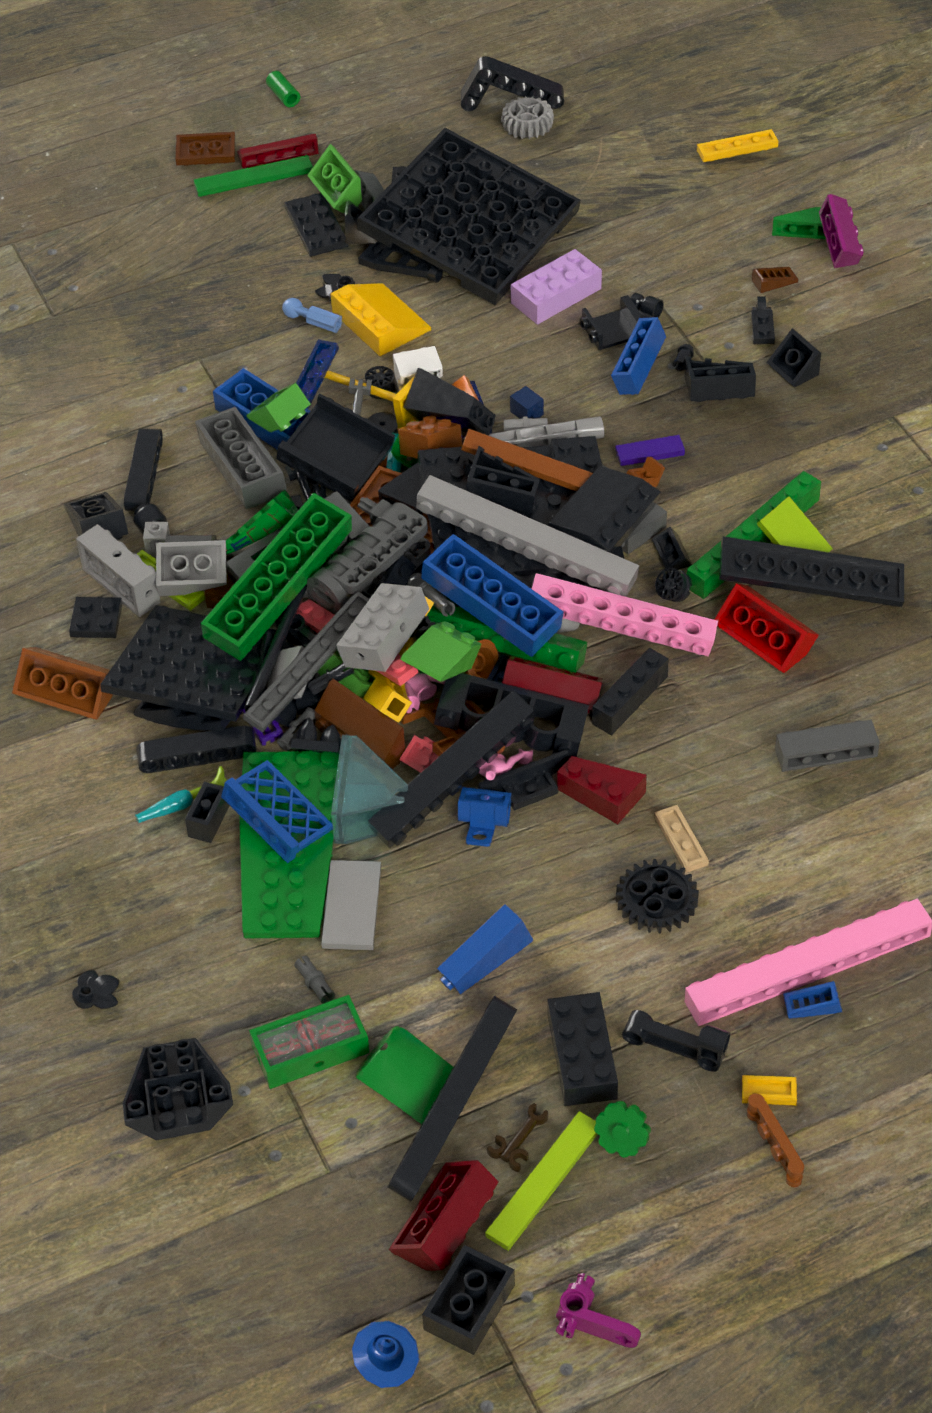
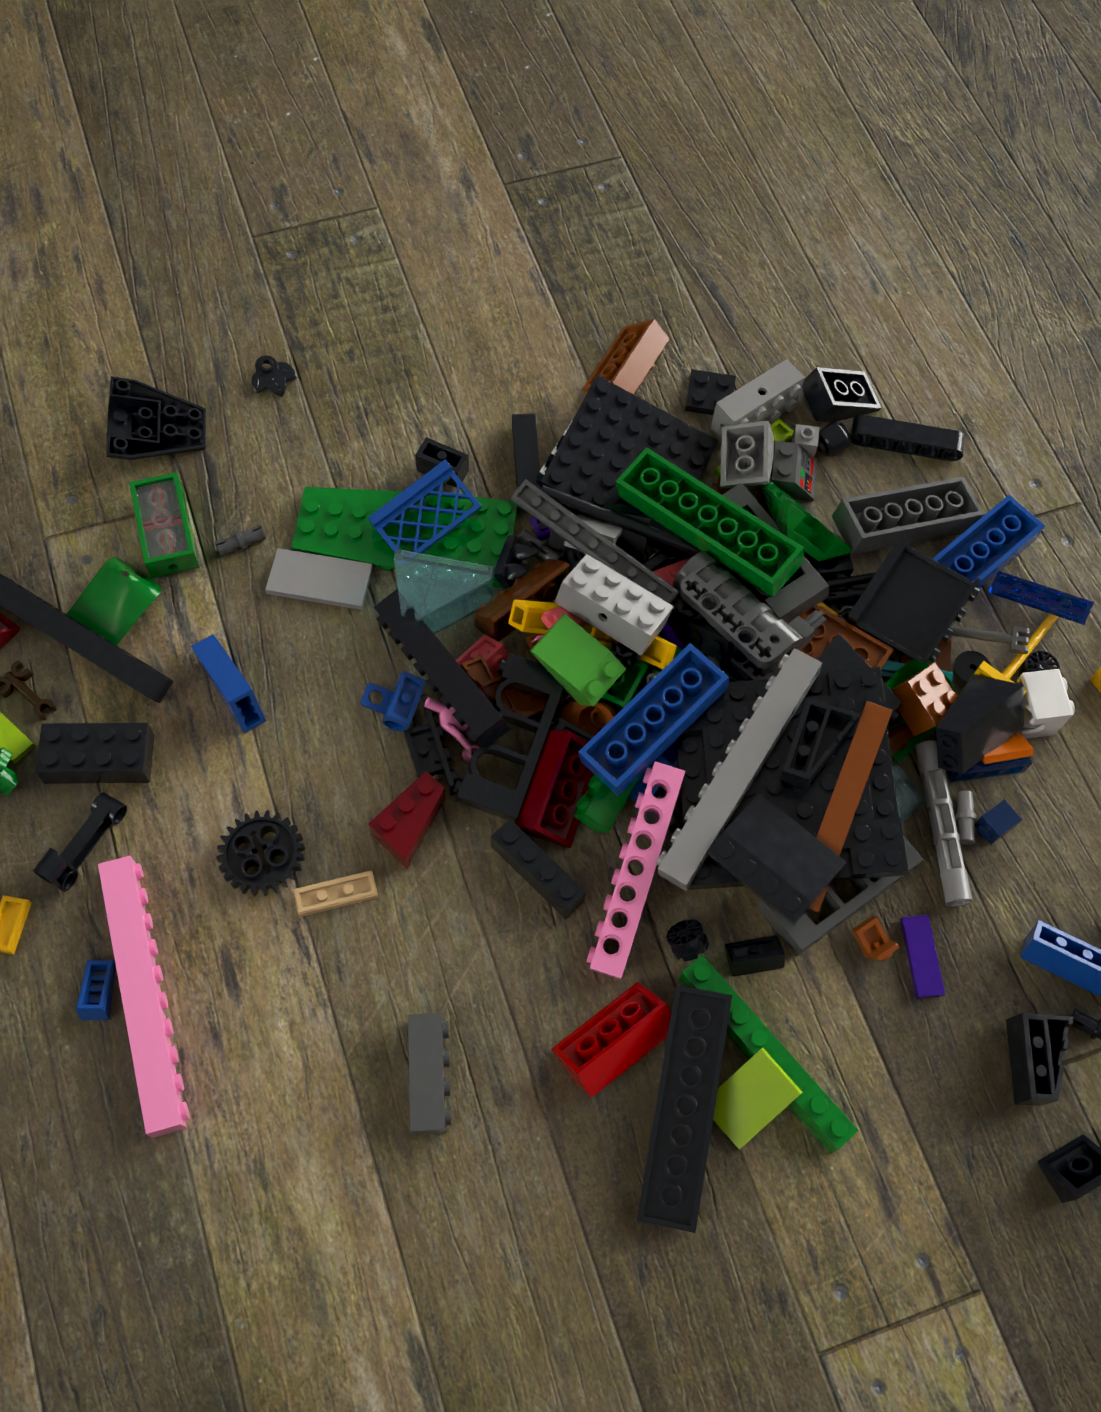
camera: 90 degrees right, 15 degrees up
(177, 801) = (470, 447): teal piece -> none
(280, 409) = (969, 548): bright green slope -> none

